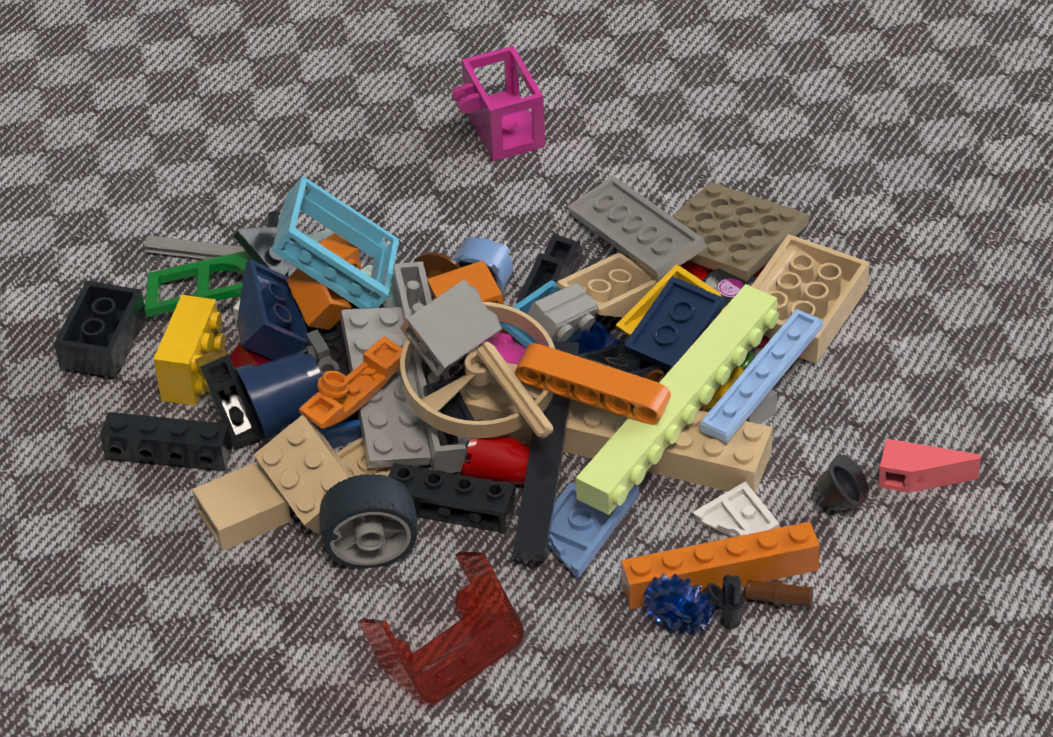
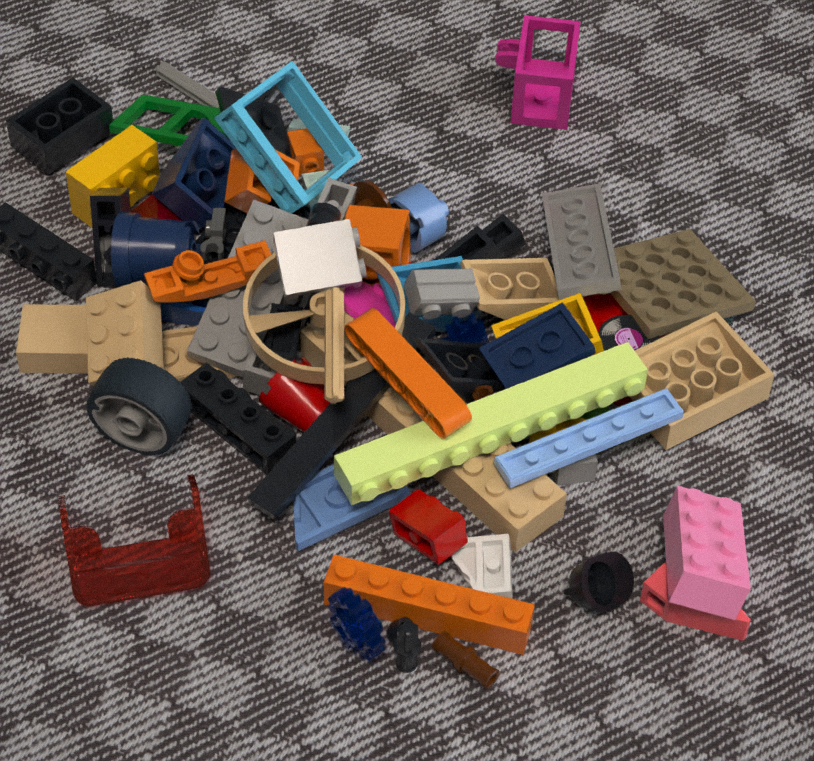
camera: 25 degrees right, 5 degrees up
(418, 295) = (323, 213): none -> black wheel
(676, 505) = (428, 526): none -> red brick
(914, 419) = (706, 553): none -> bright pink brick

